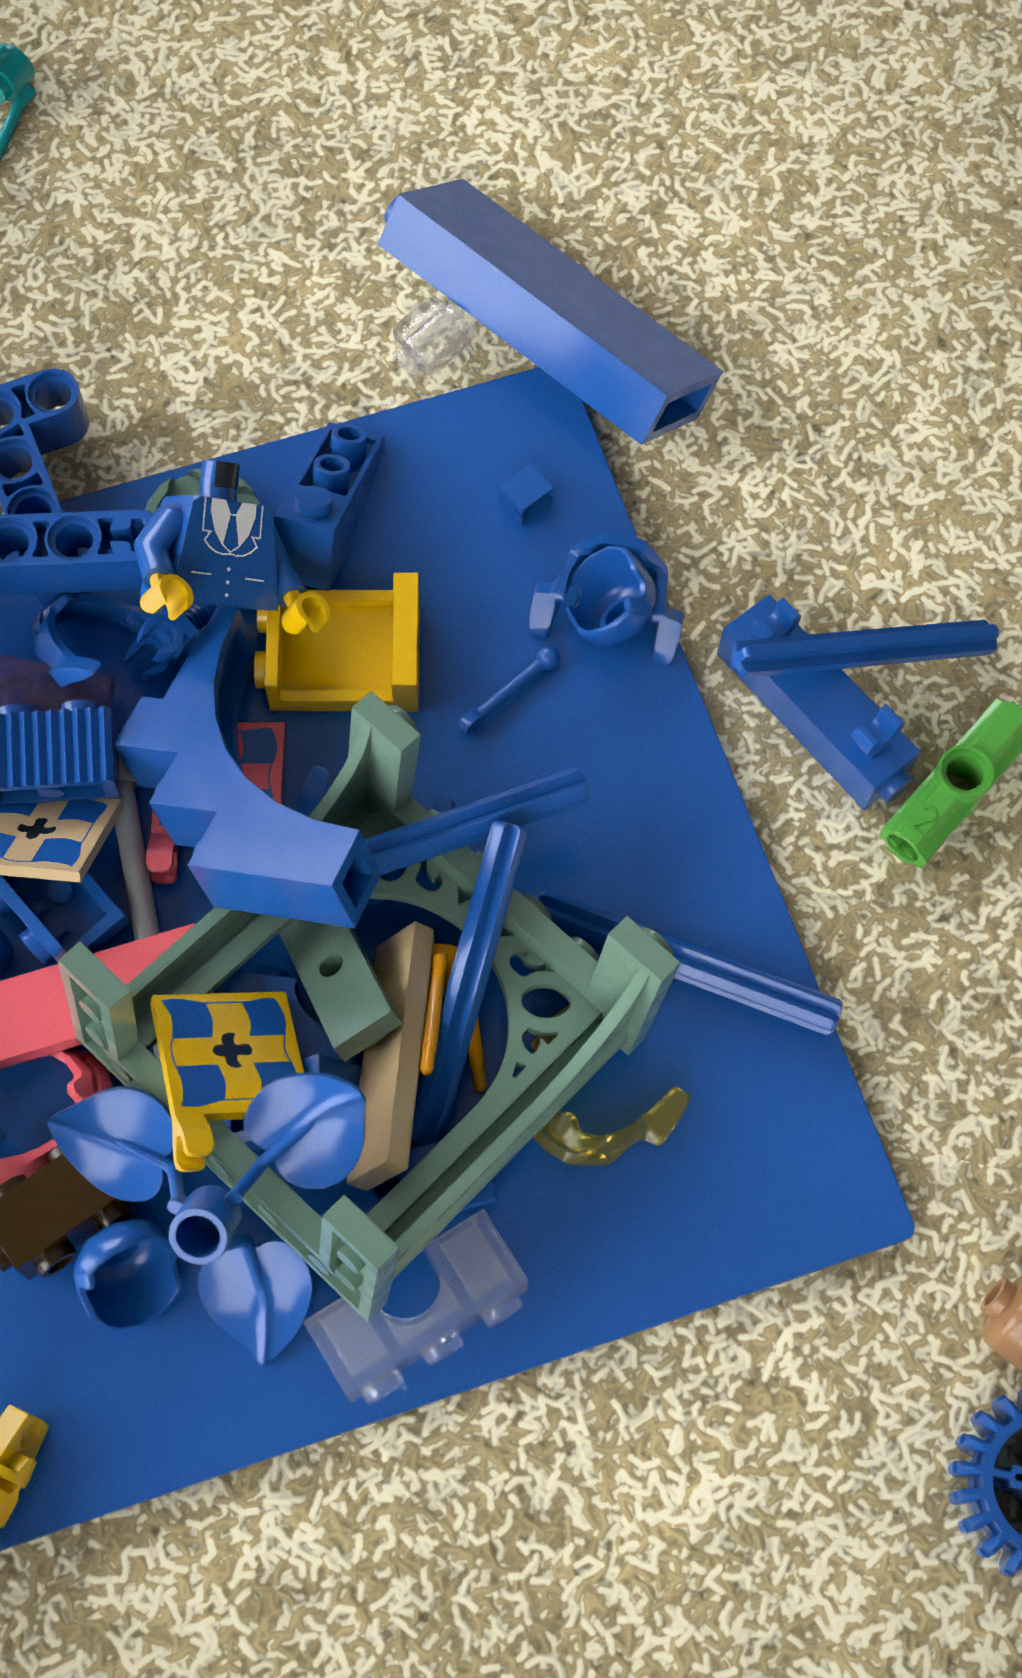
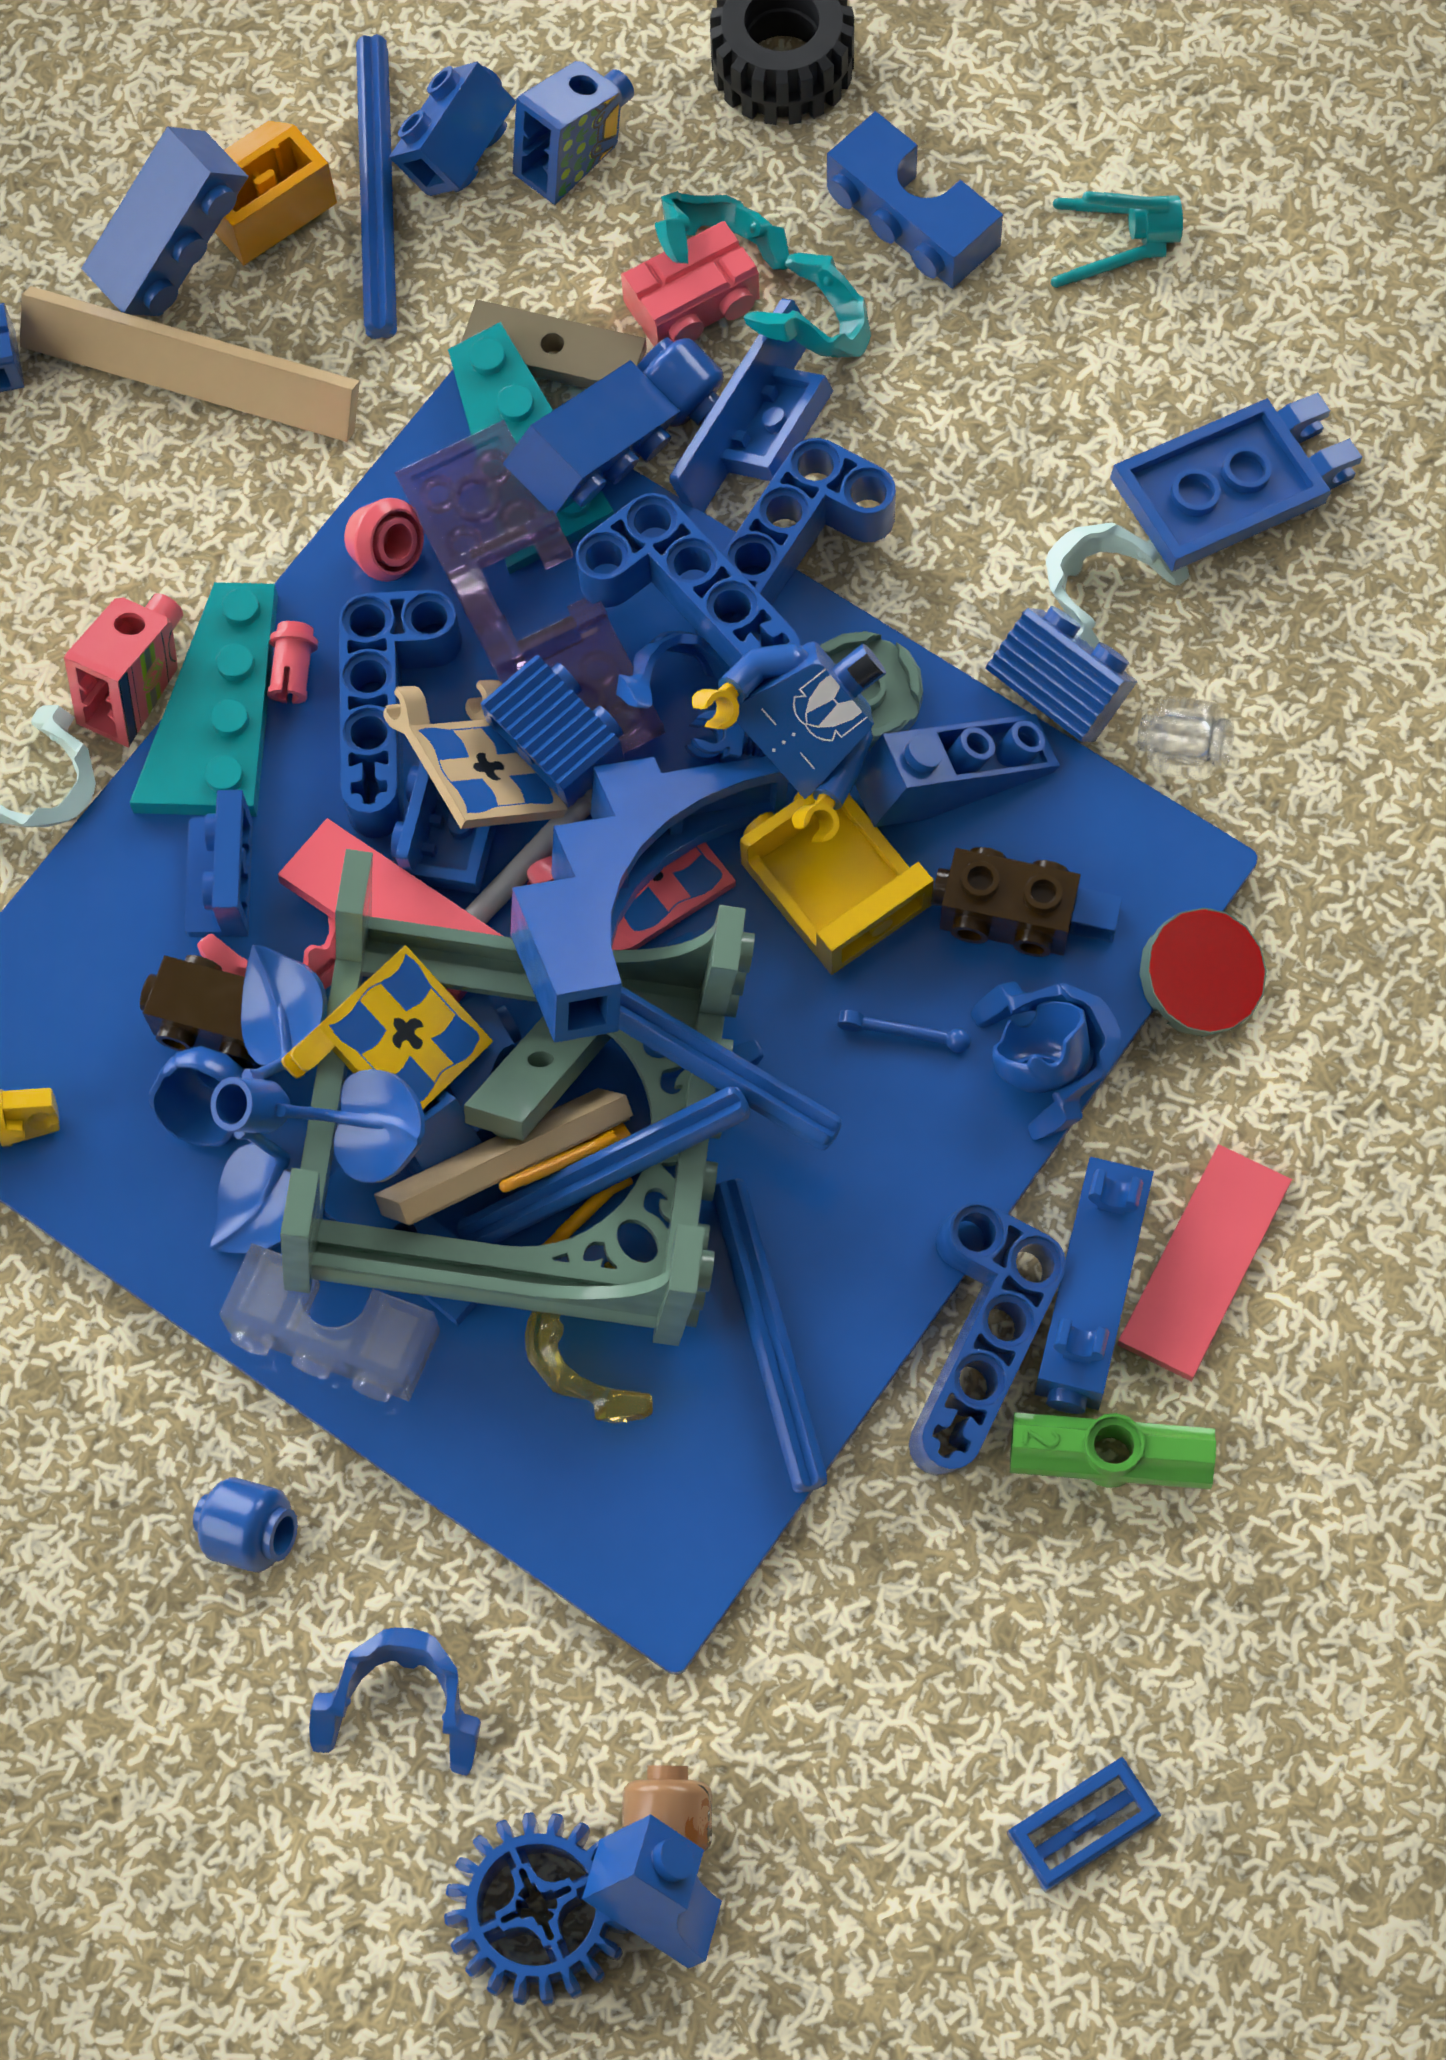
camera: 60 degrees right, 0 degrees up
(234, 275) = (1071, 550): none -> light aqua helmet
(257, 171) = (1232, 478): none -> blue tile
(315, 378) = (1062, 673): none -> blue brick
(471, 540) = (1006, 901): none -> dark brown brick
(537, 1509) = (245, 1524): none -> blue head
(549, 308) = (1286, 806): blue brick -> none
(624, 471) = (1203, 972): none -> red tile
(741, 1444) = (409, 1649): none -> blue helmet
(838, 597) = (1204, 1262): none -> coral piece
(856, 896) = (975, 1344): none -> blue beam
(863, 648) = (1165, 1285): blue axle -> none

